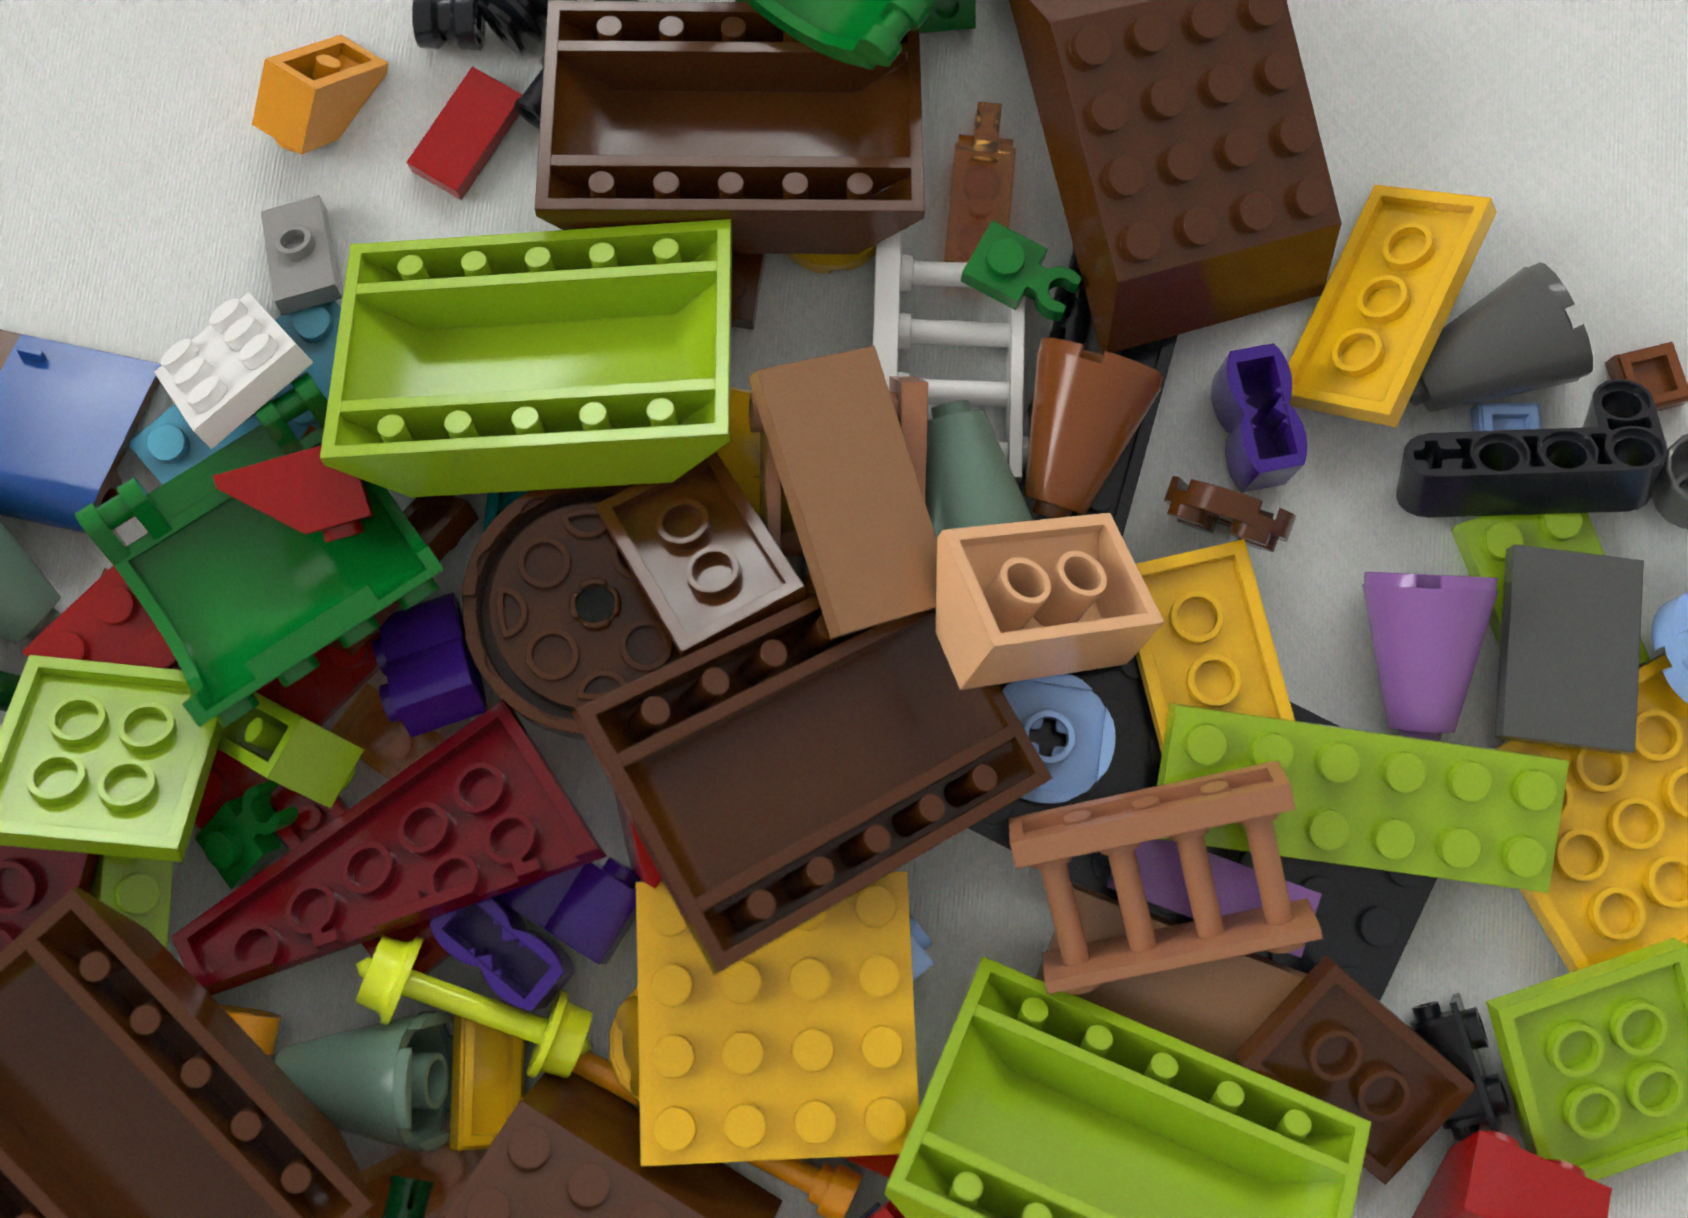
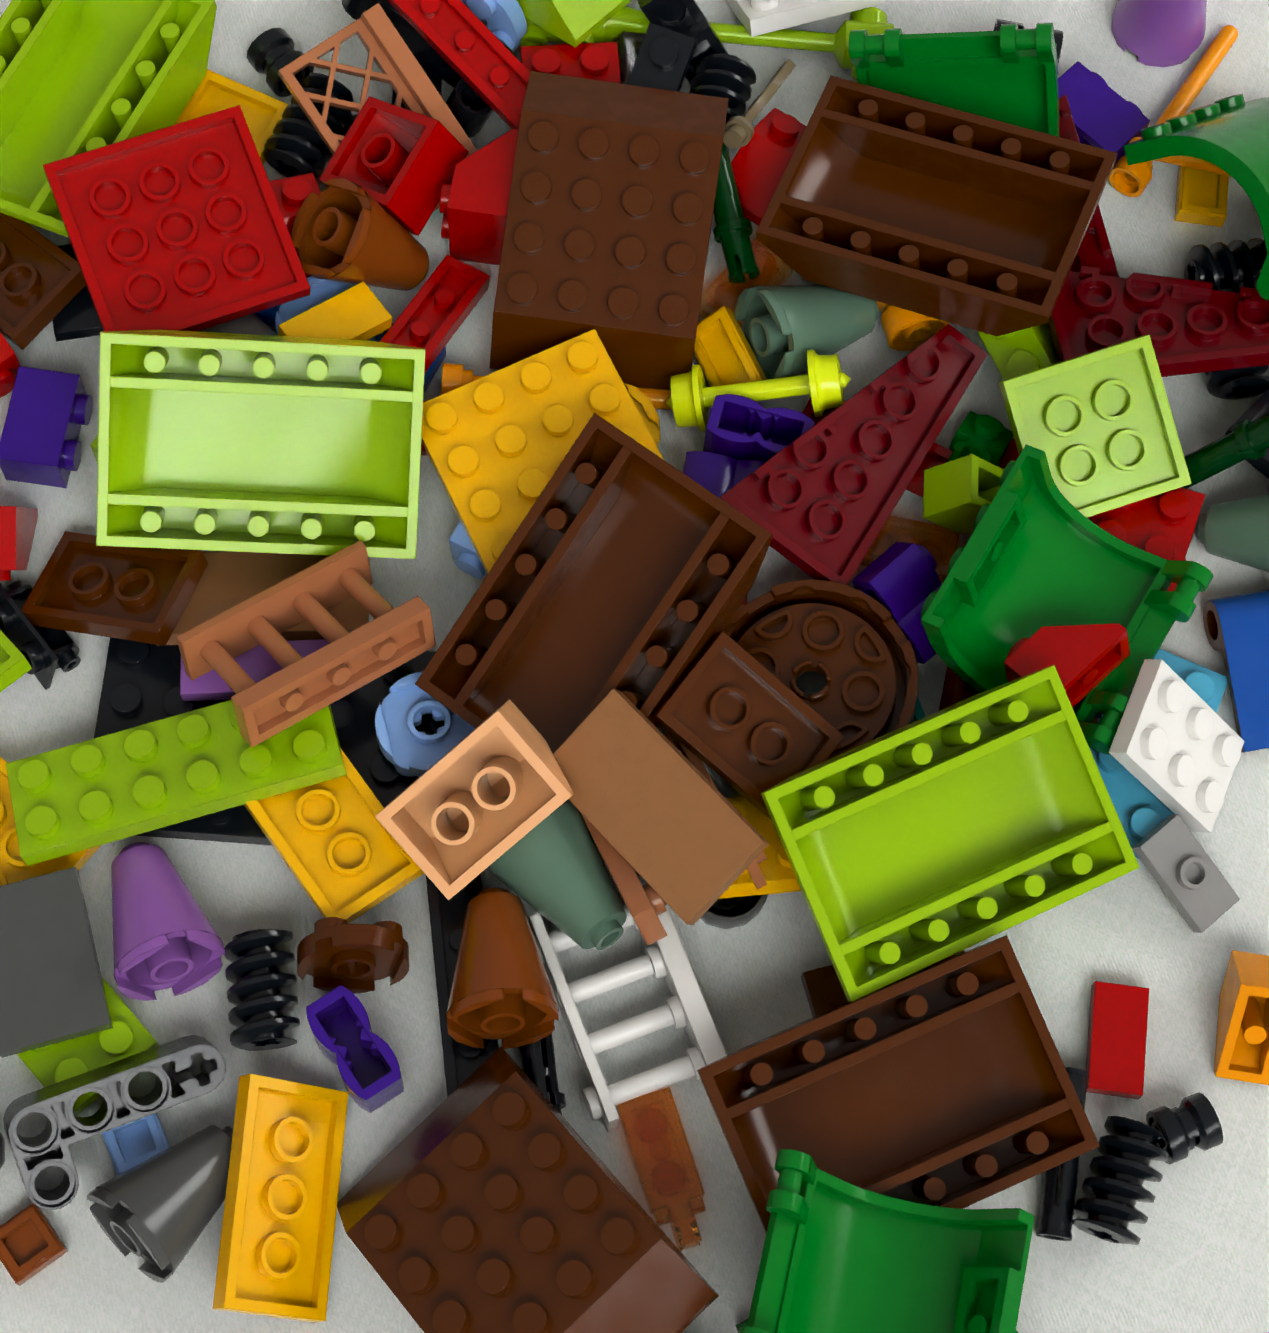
camera: 150 degrees right, 10 degrees down
(1011, 266) = (611, 1080): green plate -> none
(1328, 529) = (259, 990): none -> black piece

